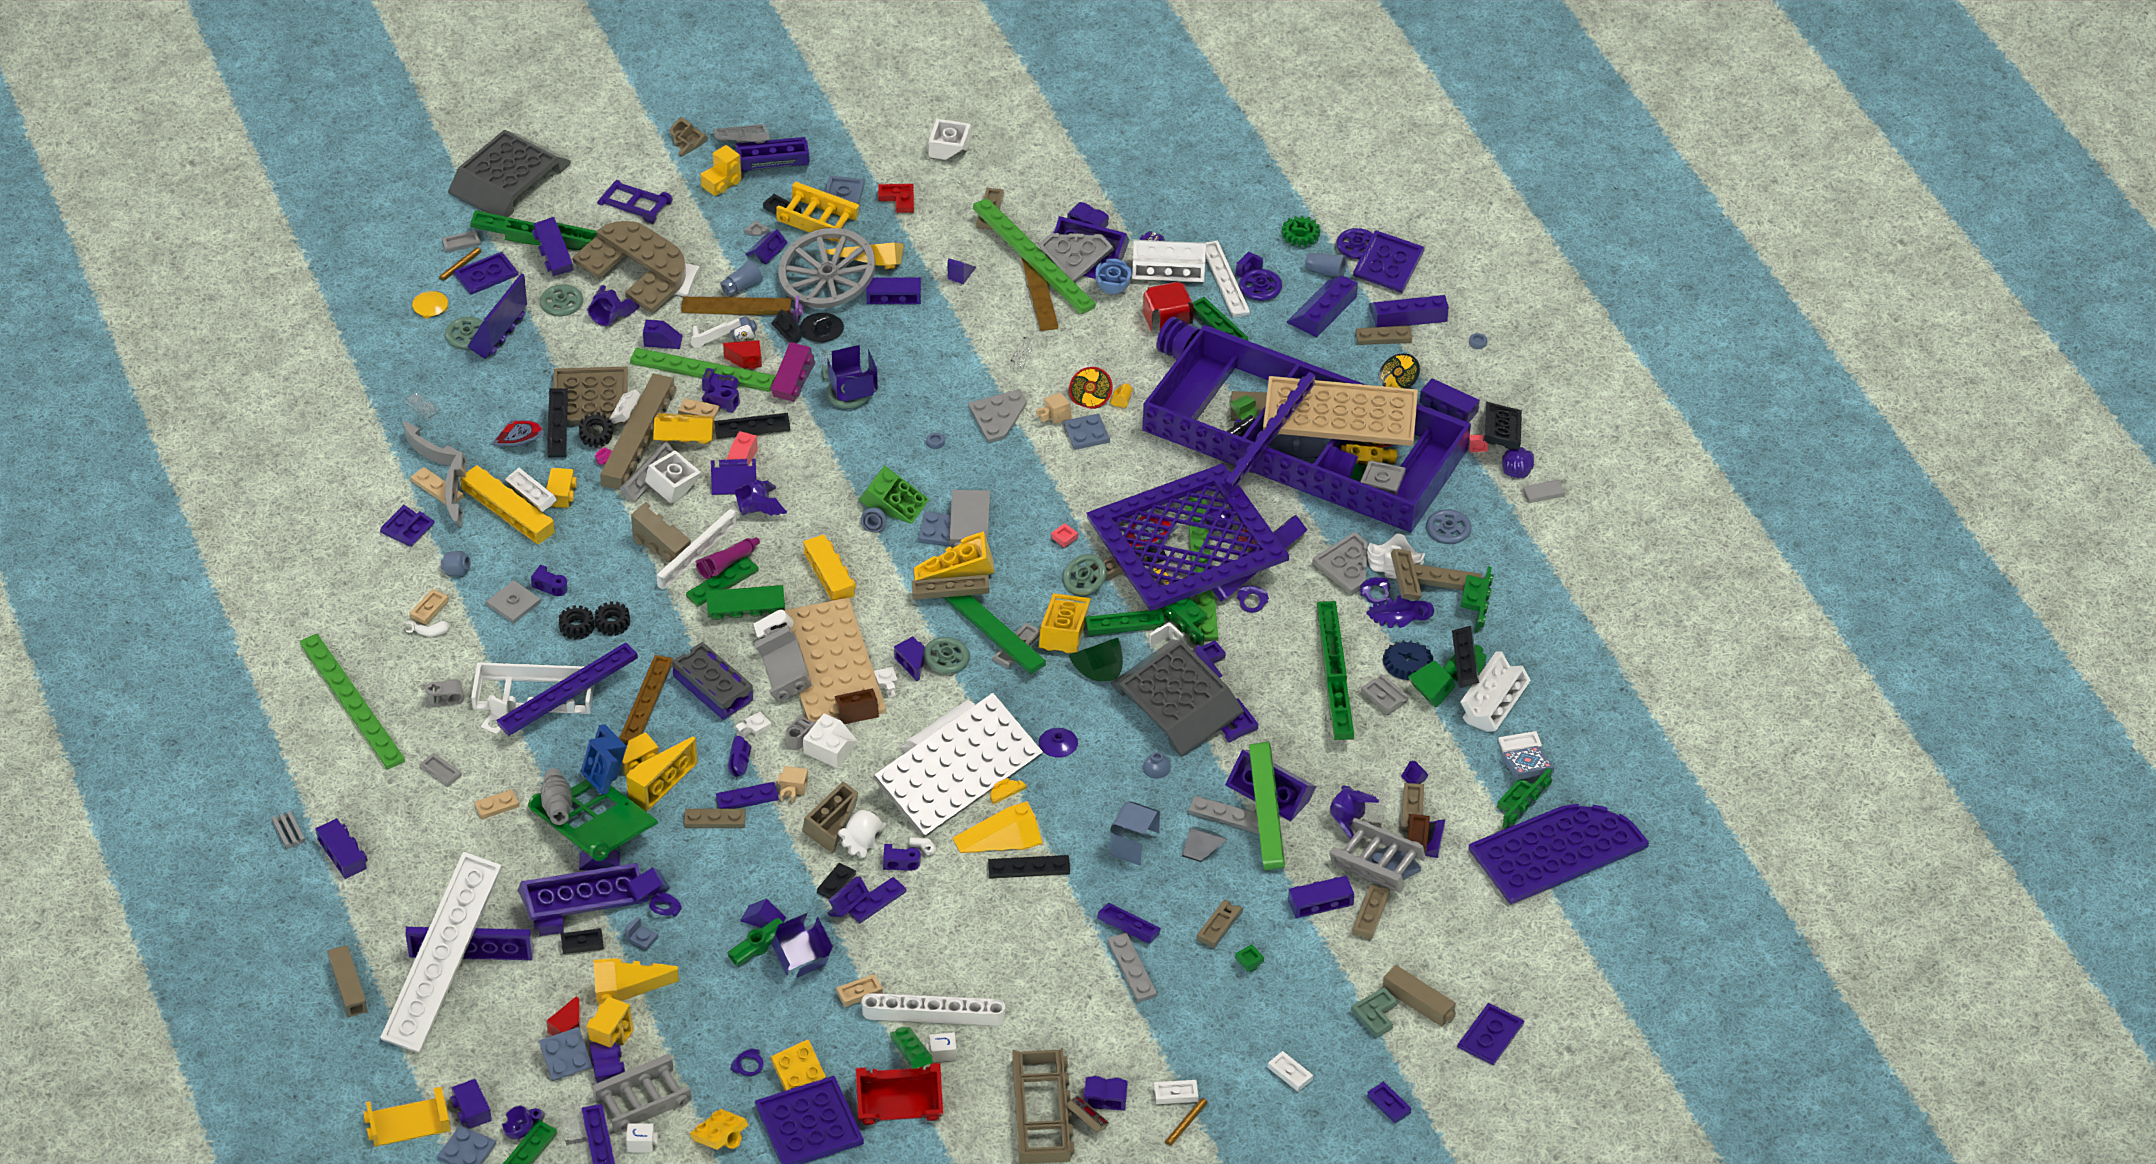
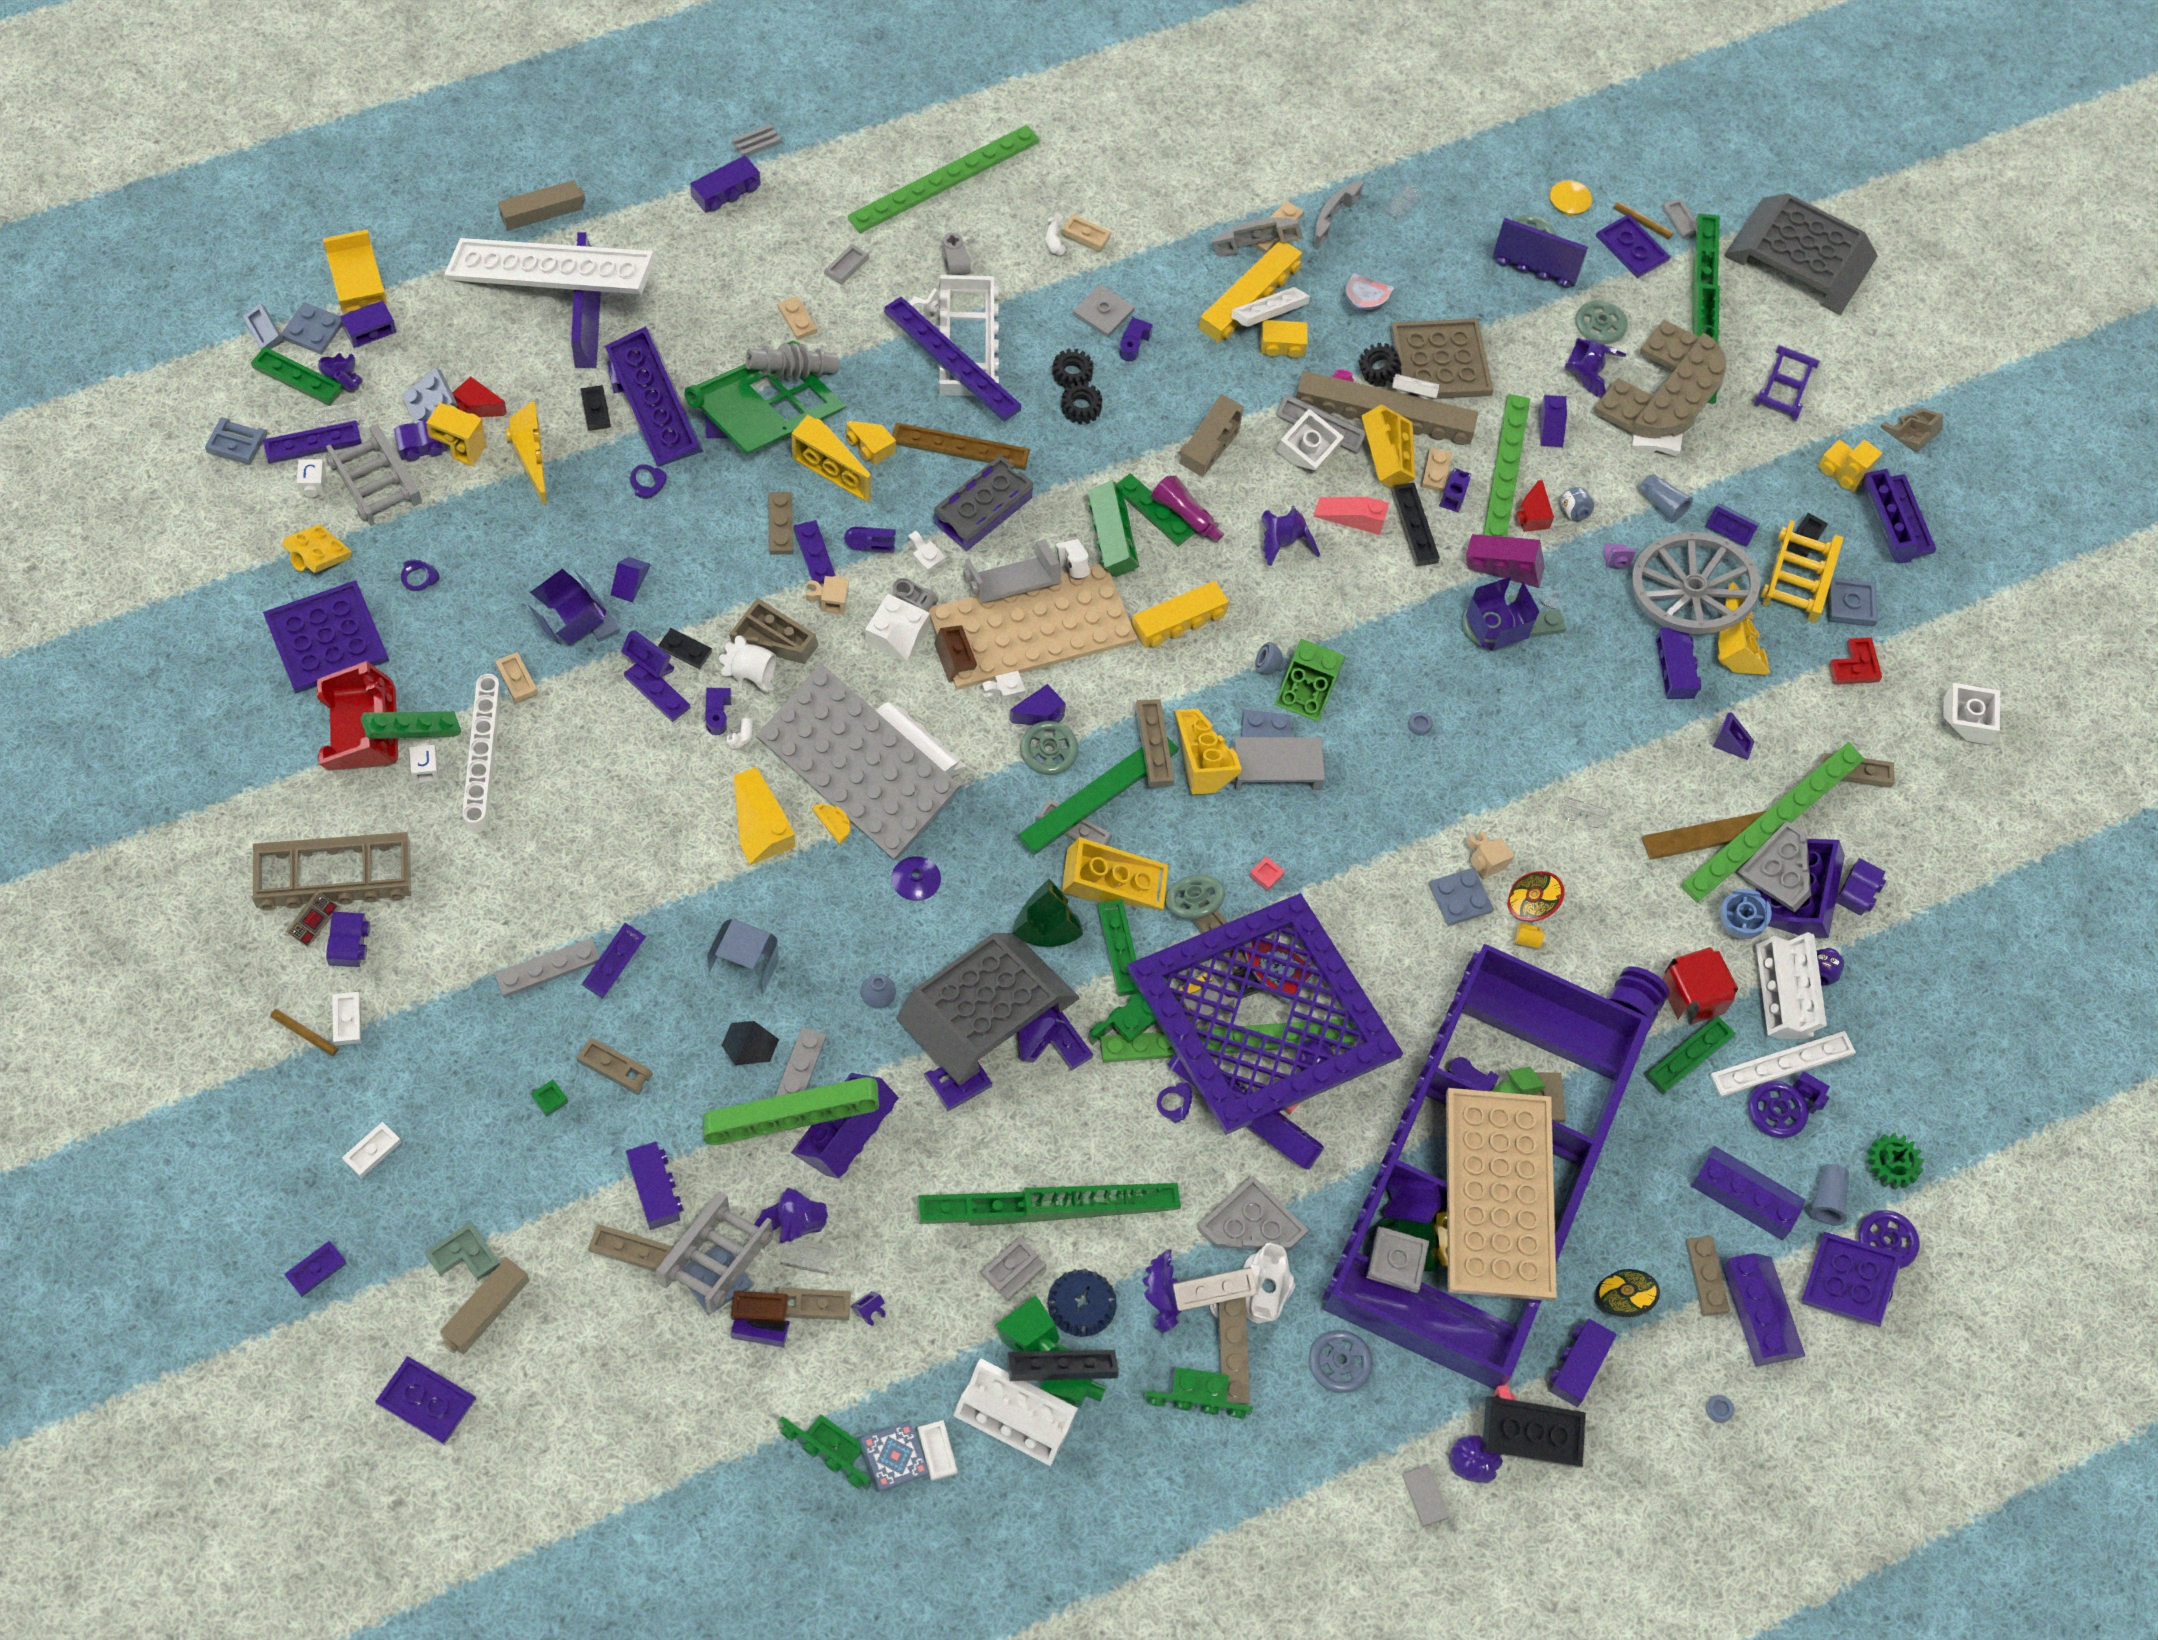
camera: 80 degrees right, 15 degrees up
(407, 526) = (1211, 204): dark purple slope -> none
(455, 563) = (1153, 250): sand blue head -> none
(552, 247) = (1675, 296): dark purple brick -> none
(557, 422) = (1383, 325): black plate -> none
(603, 759) = (846, 399): blue bracket -> none
(640, 935) = (604, 460): sand blue bracket -> none
(648, 884) = (671, 461): dark purple slope -> none
(696, 549) = (1199, 478): white tile -> none
(699, 340) = (1557, 465): white piece -> none
(711, 378) = (1481, 484): dark purple leg -> none
(731, 475) = (1323, 507): dark purple piece -> none
(735, 305) = (1622, 495): pearl gold tile -> none
(755, 944) = (587, 567): green piece -> none
(756, 228) = (1765, 512): light grey tile -> none
(757, 133) = (1927, 484): light grey plate -> none
(788, 327) = (1590, 552): black plate -> none
(797, 1066) = (400, 619): yellow plate -> none
(822, 327) = (1603, 591): black shield -> none
(998, 414) = (1477, 792): light grey plate -> none
(1029, 866) = (709, 850): black plate -> none
(1163, 632) = (1102, 990): white bracket -> none
(1241, 427) = (1472, 1073): black axle -> none
(1264, 437) = (1441, 1097): dark purple plate -> none
(1375, 581) = (1208, 1246): dark purple piece -> none
(1555, 848) = (742, 1494): dark purple plate -> none

